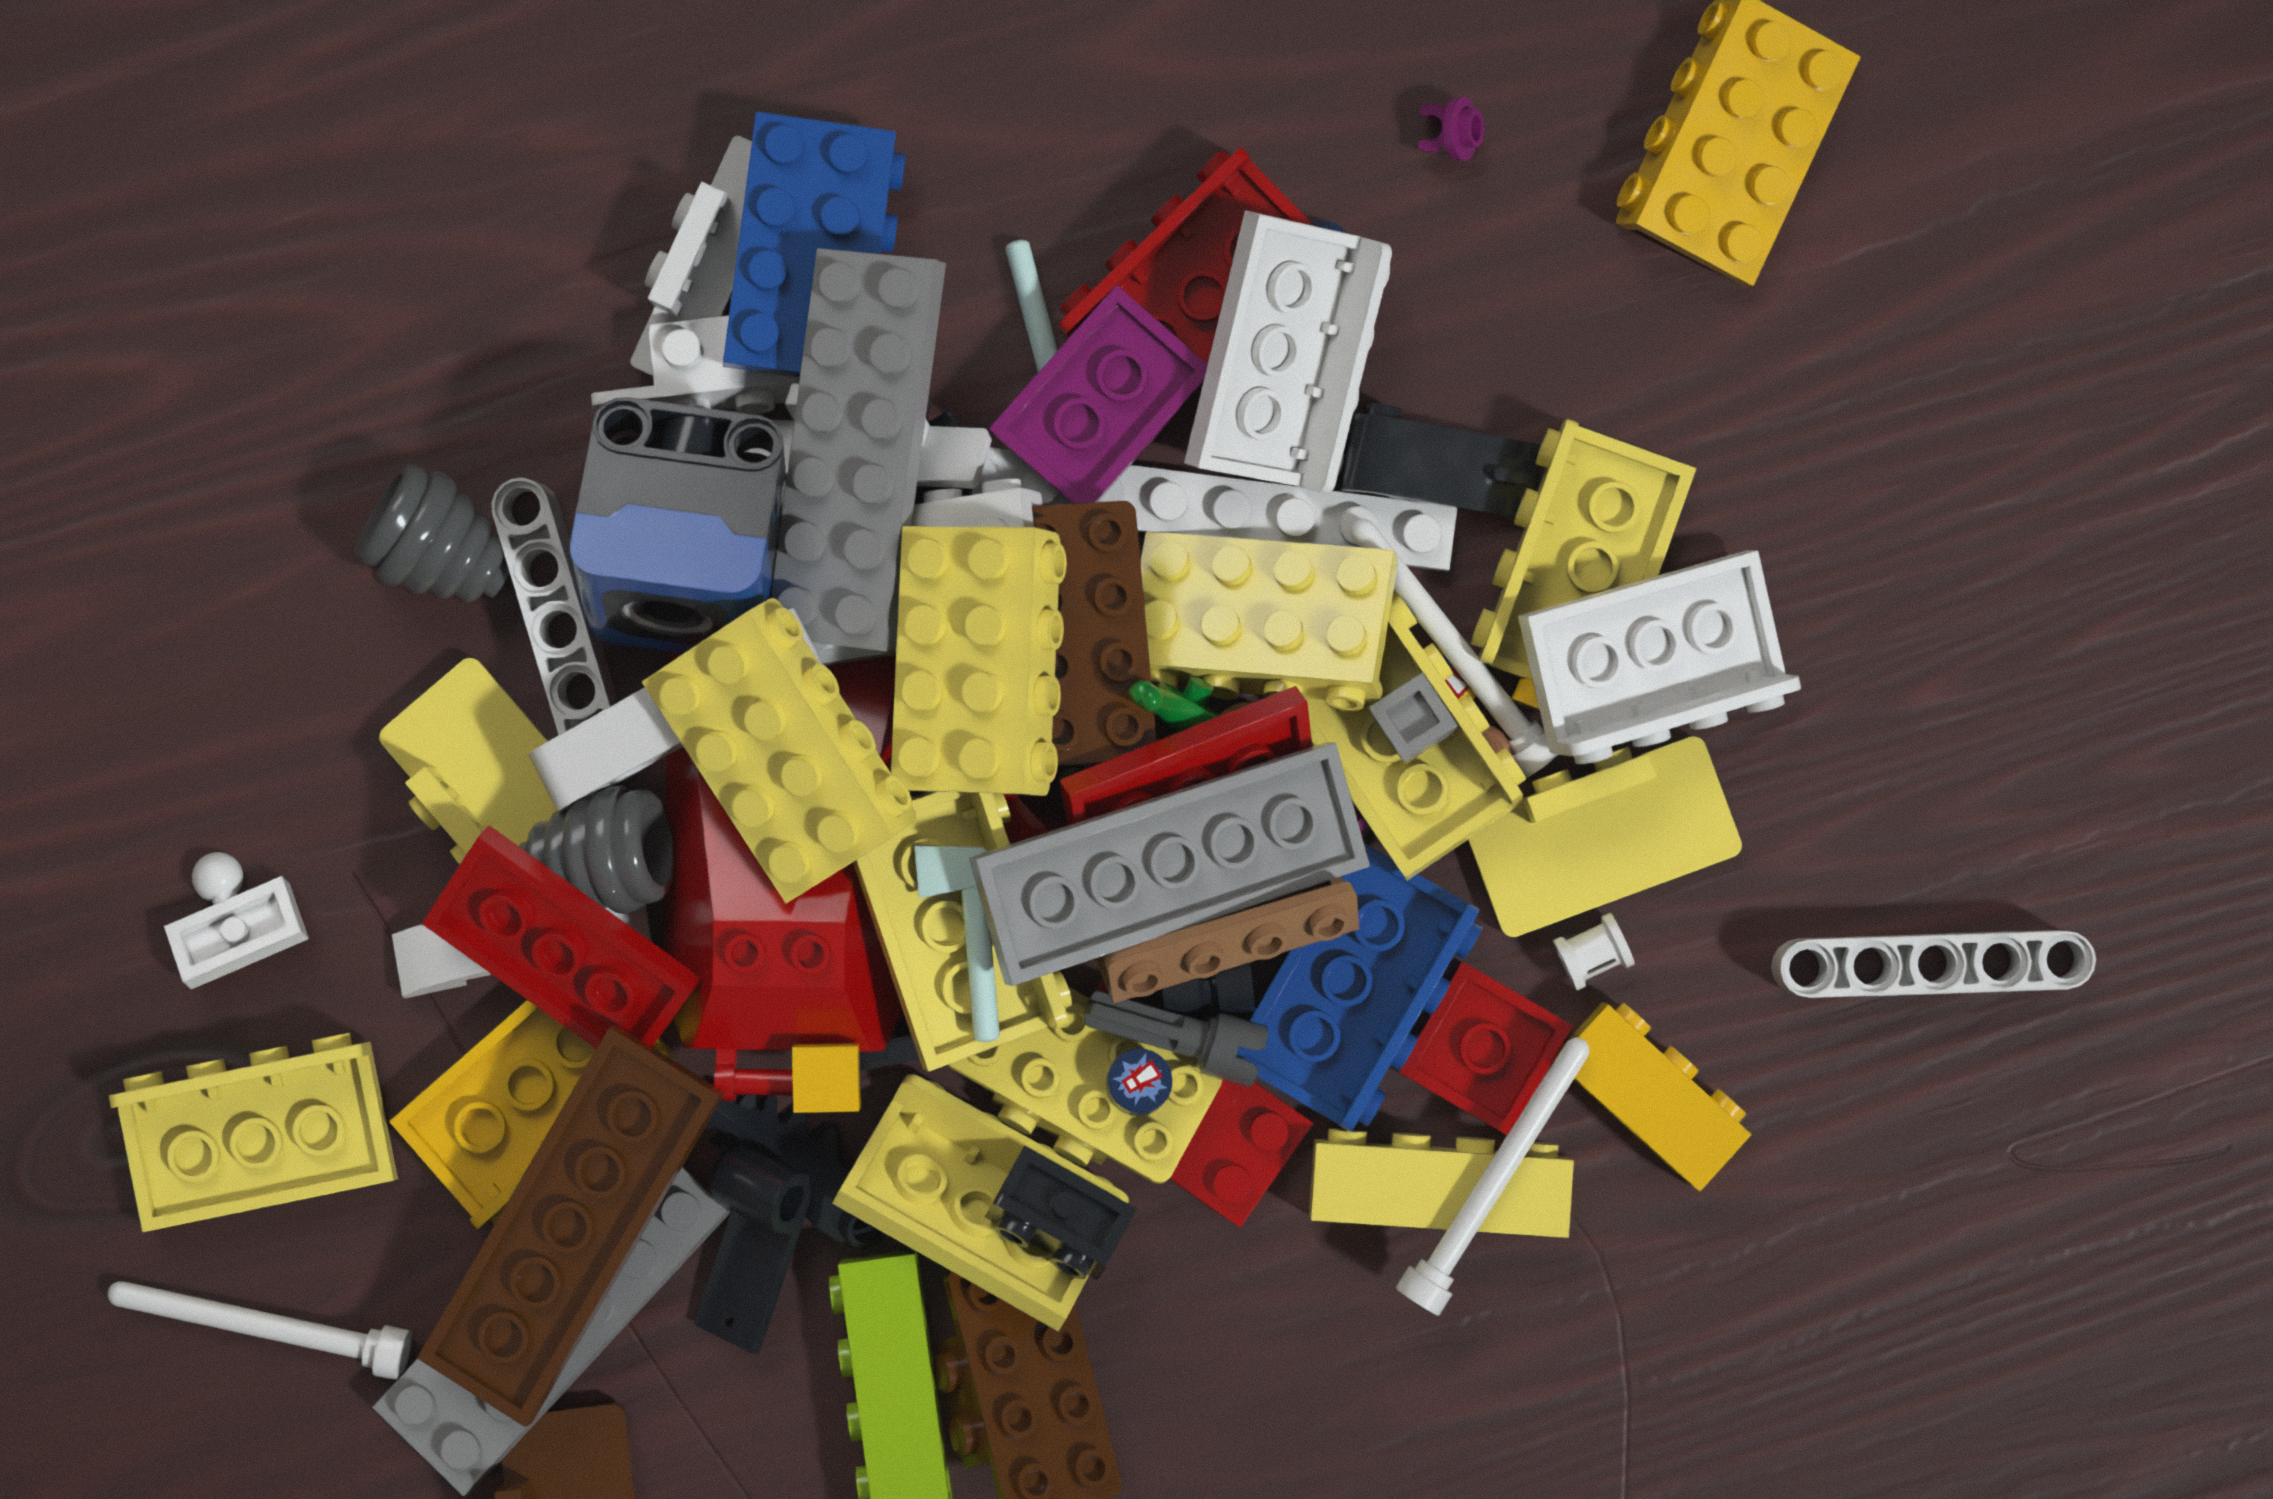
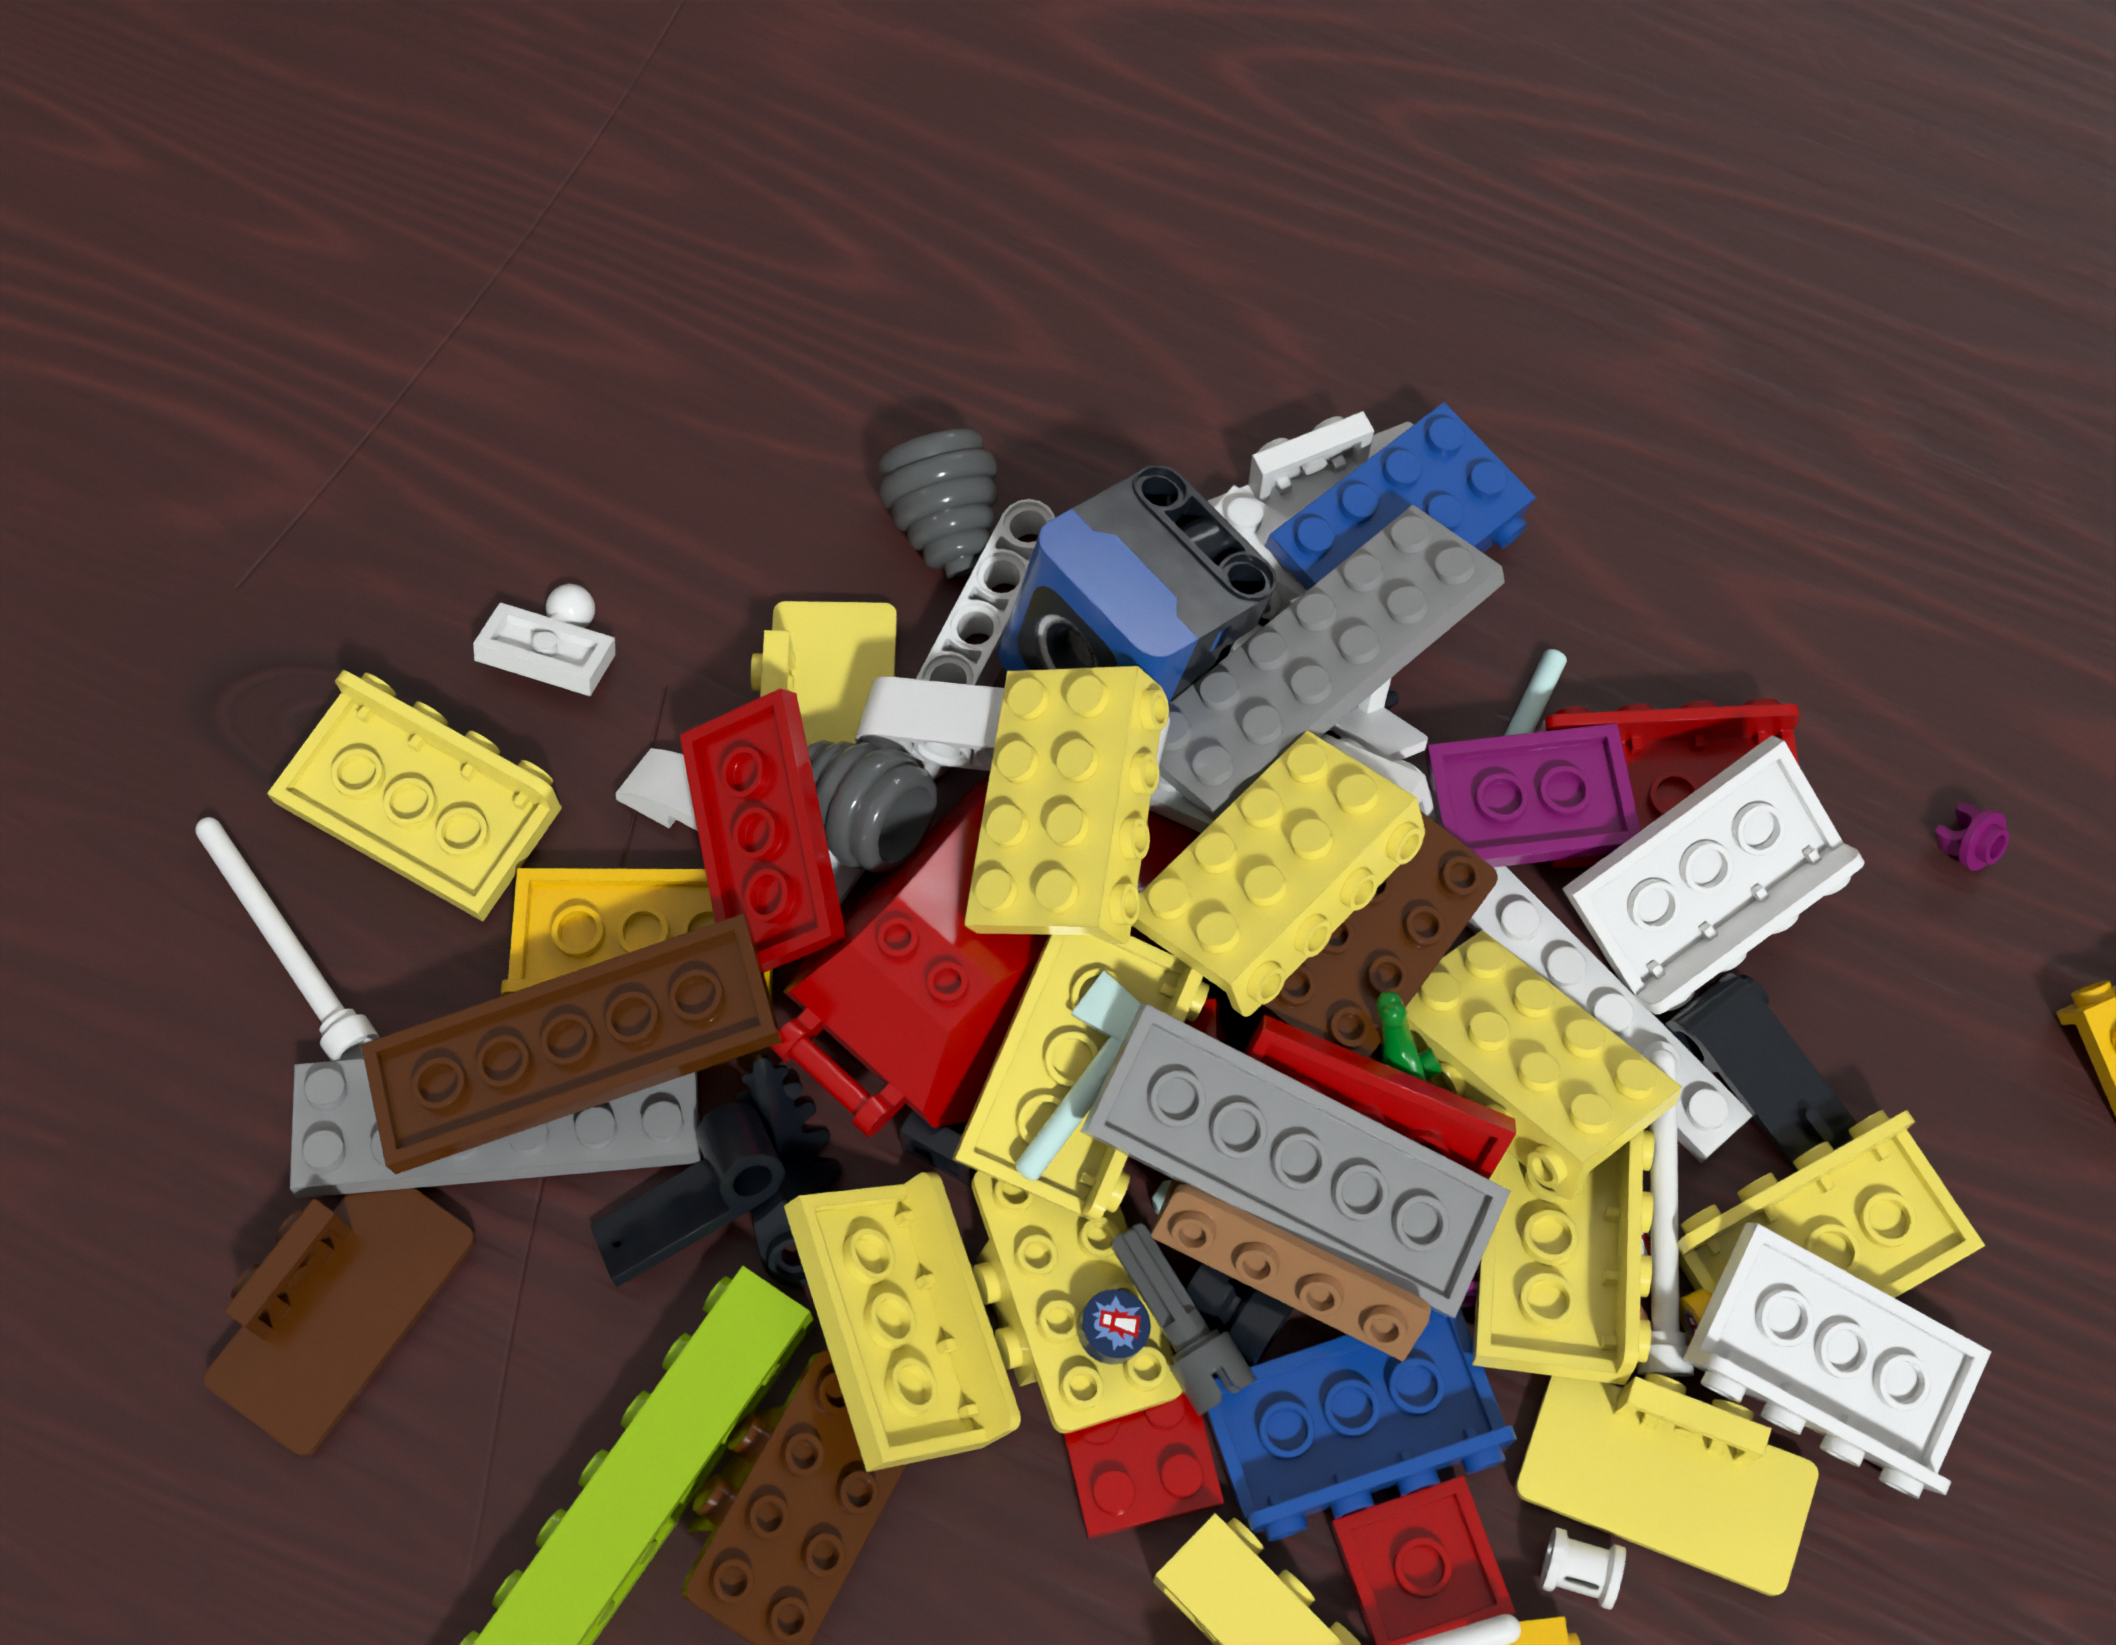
camera: 35 degrees right, 20 degrees down
(826, 1077) = (870, 1095): yellow tile -> none
(1060, 1215) = (953, 1380): black bracket -> none
(1413, 718) = (1589, 1233): light grey plate -> none

